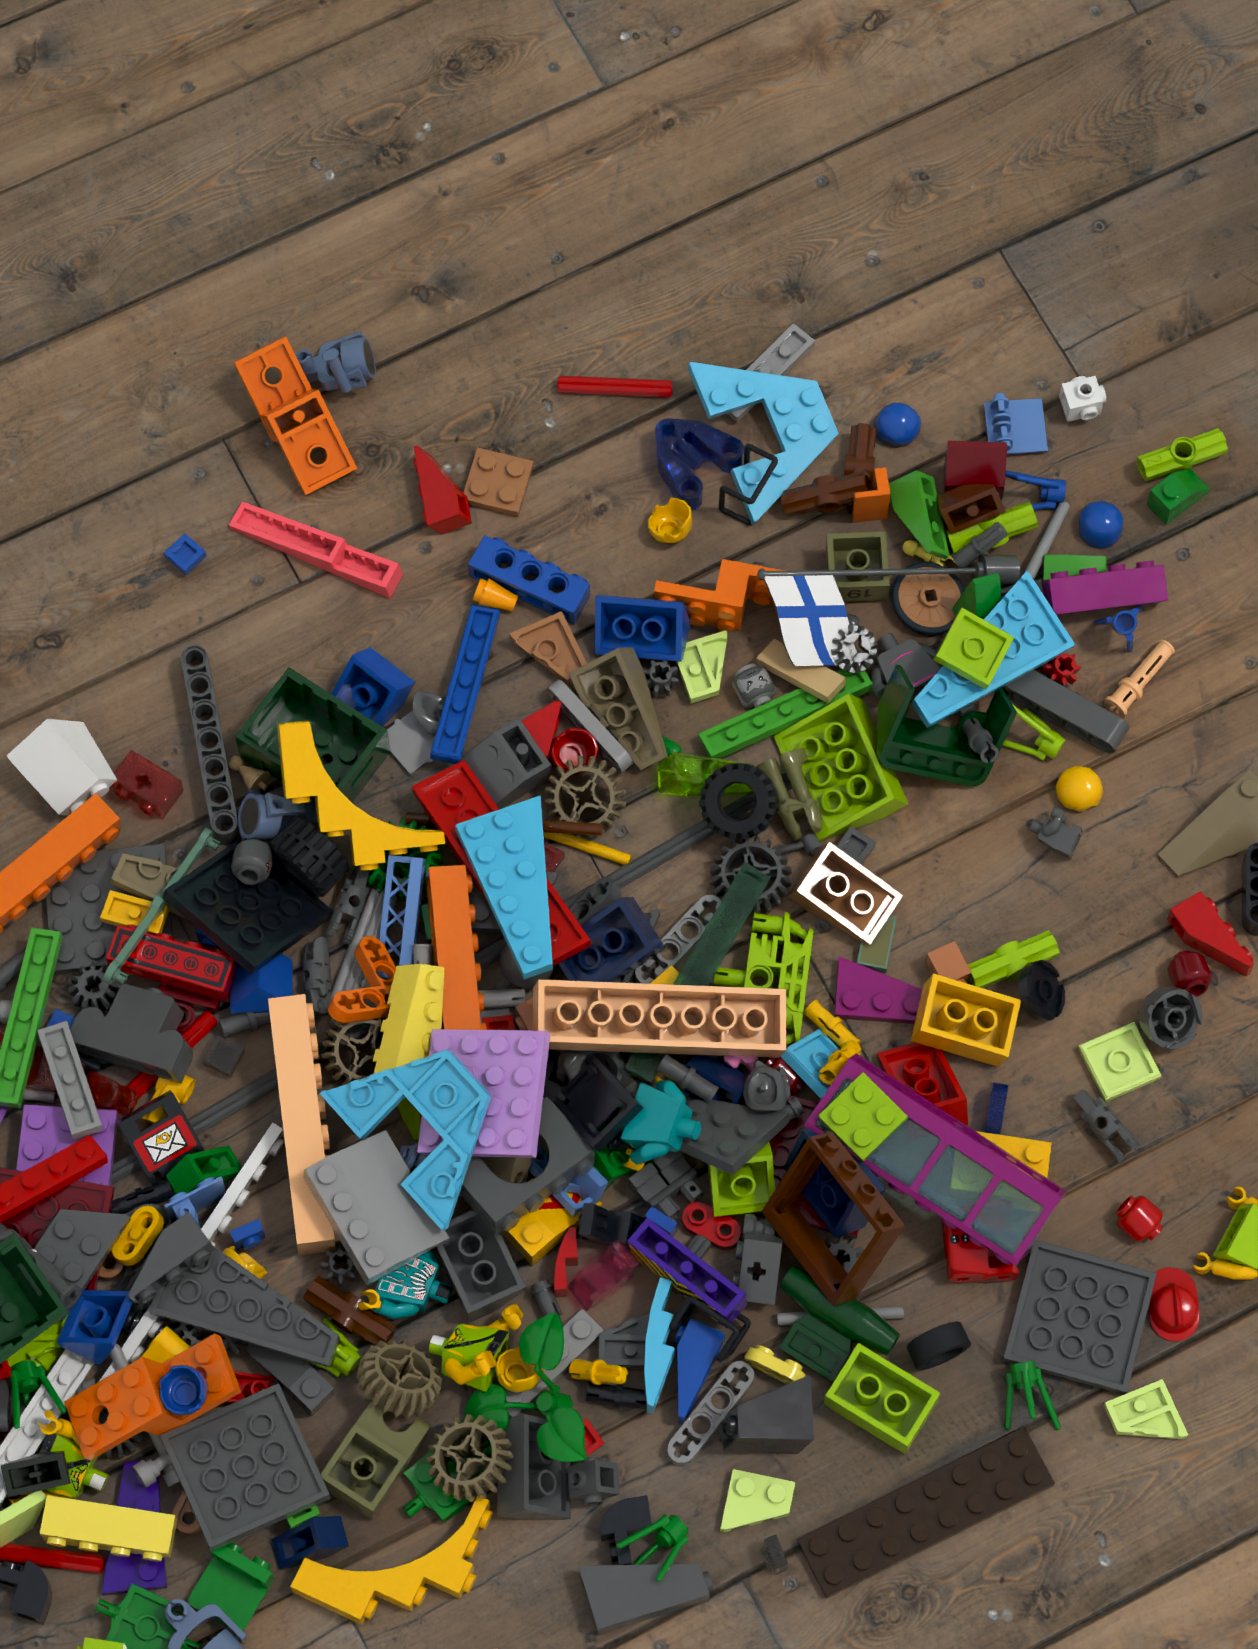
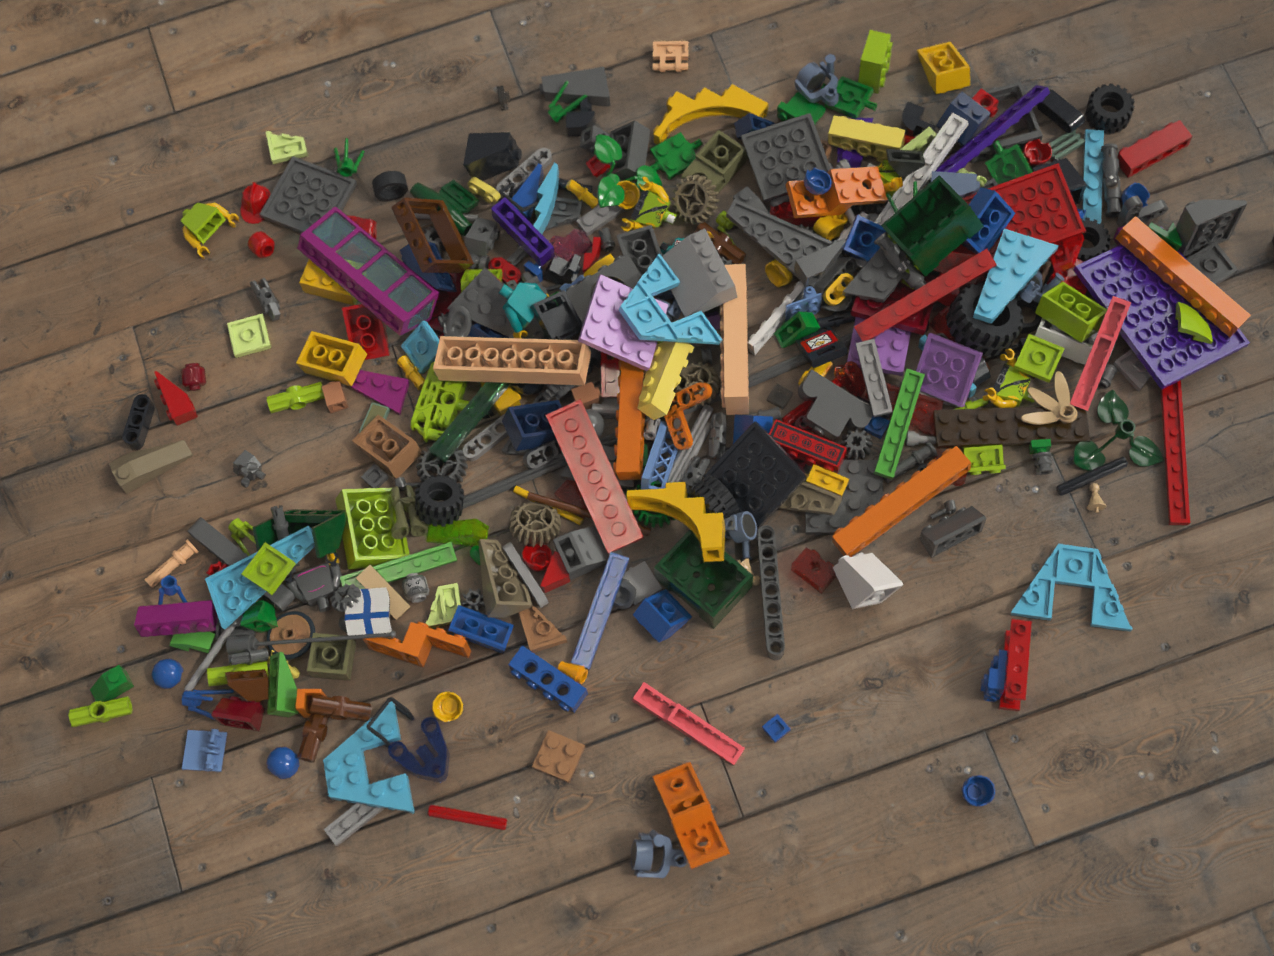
camera: 165 degrees left, 0 degrees up
(114, 971) = (842, 427): sand green piece -> none
(248, 1235) = (774, 291): blue plate -> none
(252, 861) = (750, 499): dark grey head -> none
(443, 500) = (596, 744): red slope -> none
(473, 1432) = (649, 142): dark tan gear -> none
(511, 870) = (588, 470): medium azure wing -> none
(687, 1078) = (497, 331): dark grey pin -> none
(755, 1499) = (514, 124): yellowish green wing -> none
(837, 1061) = (415, 330): yellow pin -> none
(863, 1117) = (403, 288): lime plate -> none
(881, 1398) = (427, 163): lime brick -> none
(925, 1512) = (416, 113): dark brown plate -> none
(996, 1108) = (327, 312): clear blue beam -> none
(1041, 991) = (282, 373): black tile -> none
(1079, 788) = (228, 499): yellow hair -> none
(1082, 398) = (154, 759): white brick -> none
(1170, 1017) = (213, 349): dark grey cylinder -> none

